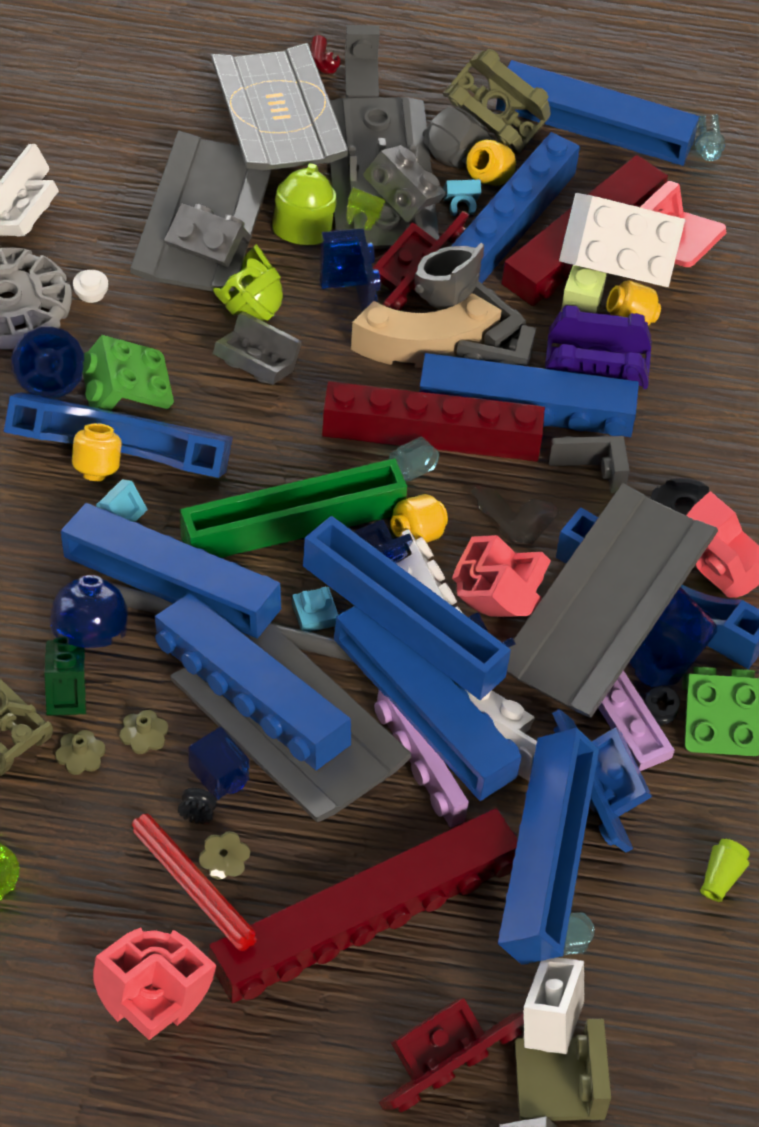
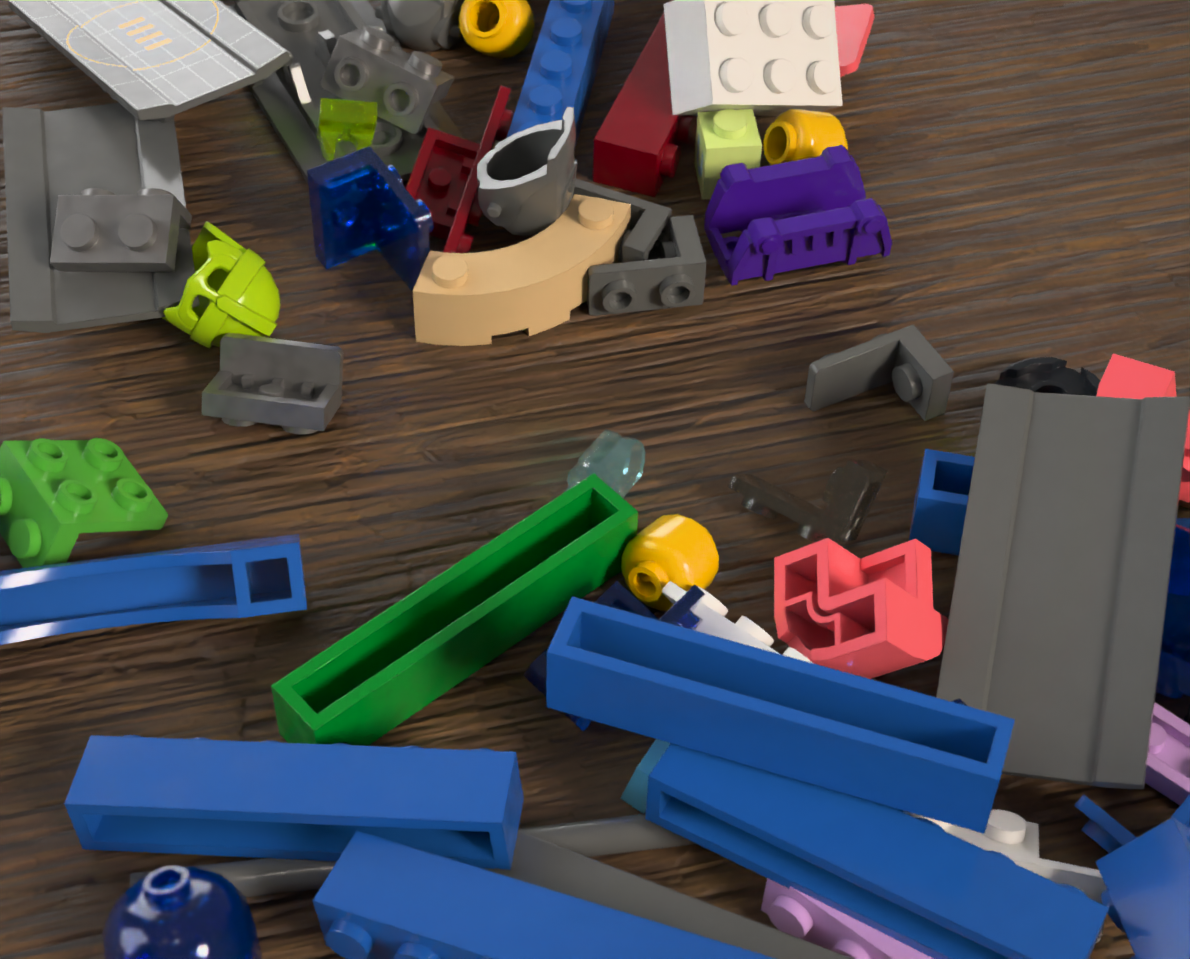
camera: 20 degrees left, 5 degrees down
(96, 451) = (71, 639): yellow head -> none
(124, 501) = (155, 708): medium azure tile -> none
(304, 207) = (249, 158): lime helmet -> none
(315, 609) = (573, 776): medium azure tile -> none
(442, 420) = (637, 392): dark red brick -> none
(462, 191) = (475, 71): medium azure tile -> none
(569, 398) = (726, 316): blue brick -> none

